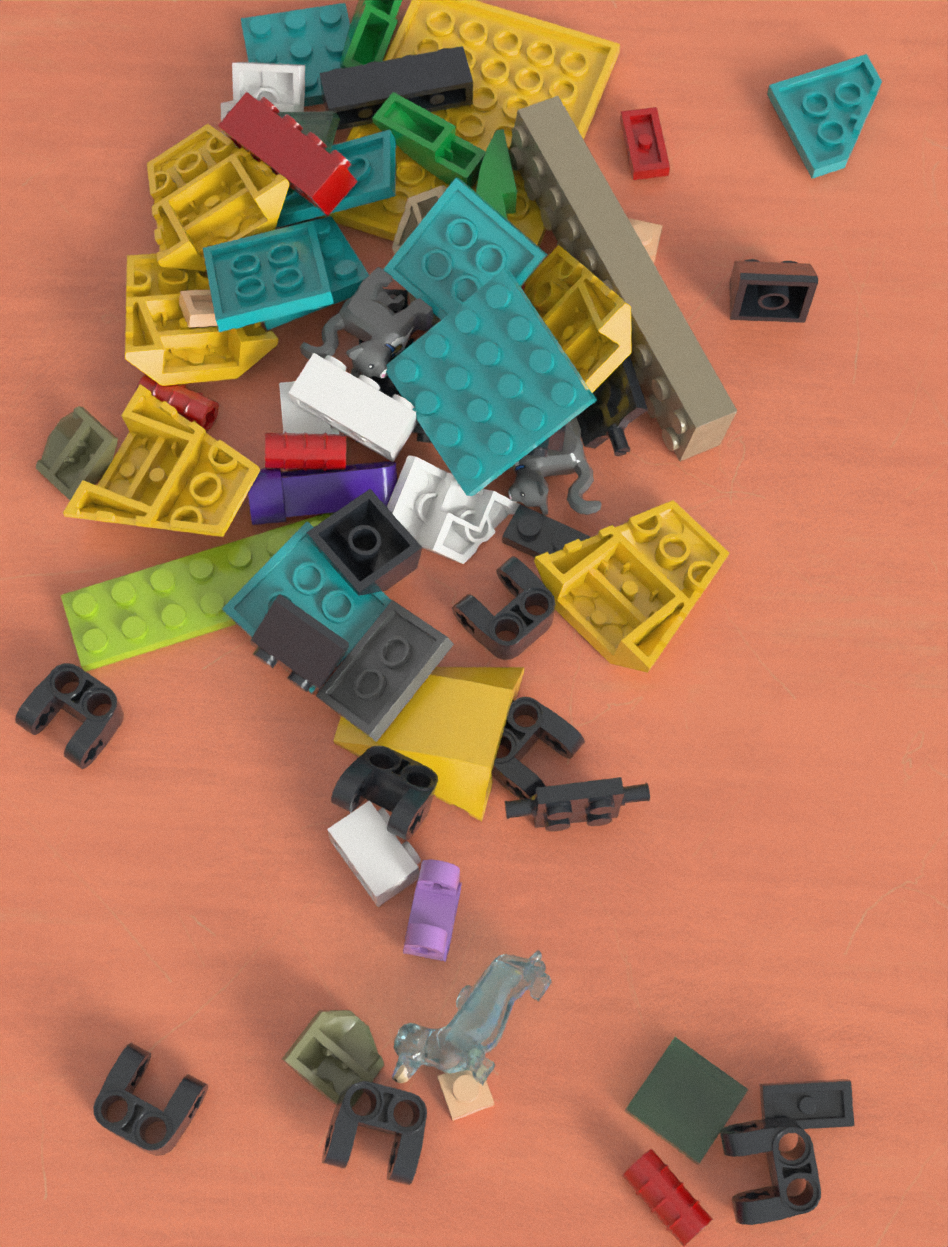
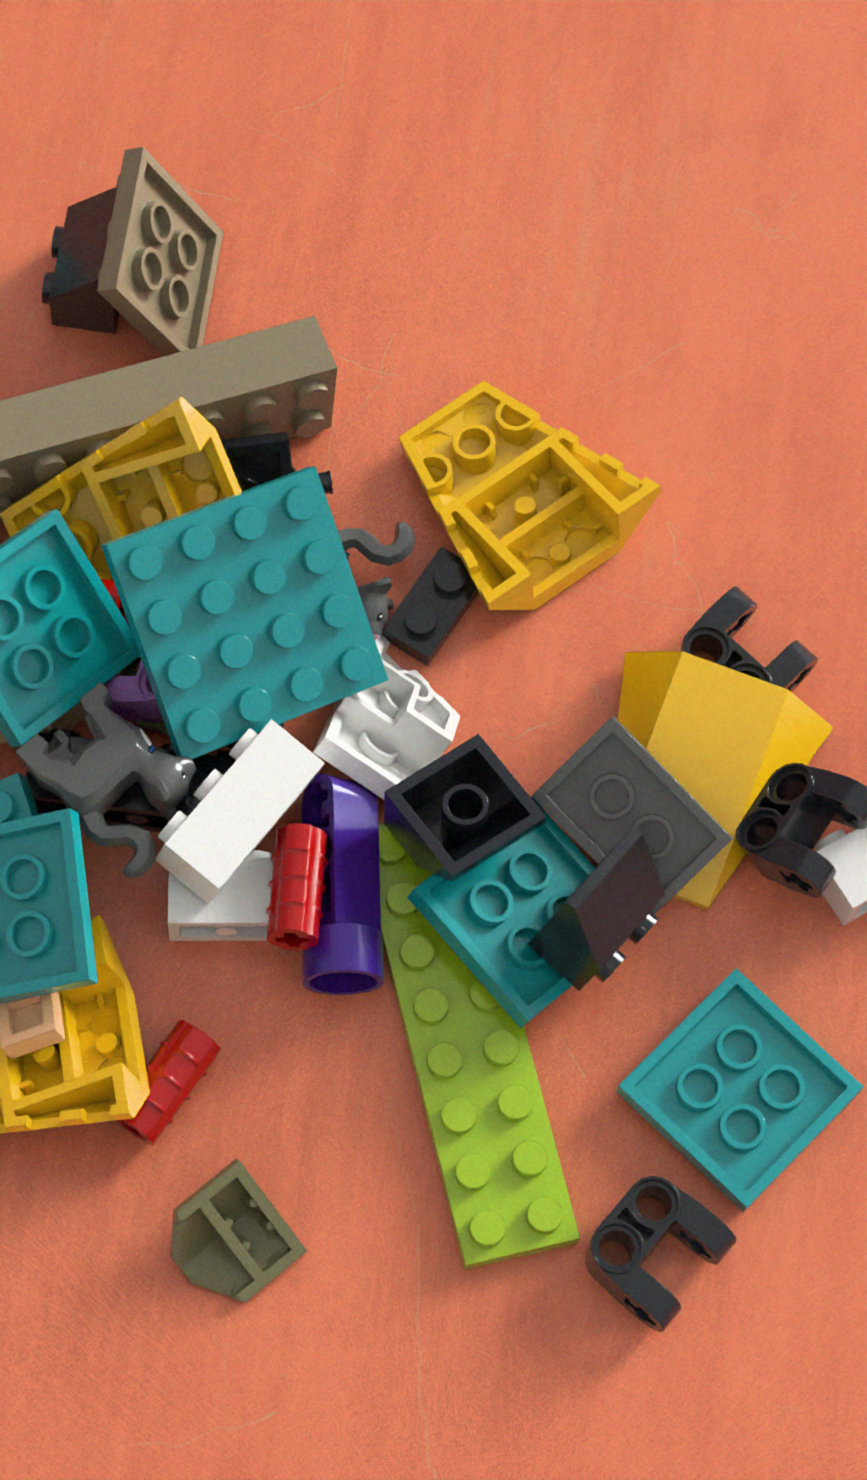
camera: 90 degrees left, 0 degrees up
(167, 475) = (307, 1090): yellow wedge -> none
(193, 767) = (739, 1089): none -> teal plate
(513, 617) = (549, 651): black piece -> none
(578, 802) = (832, 600): black plate -> none
(773, 318) = (159, 256): none -> dark tan plate

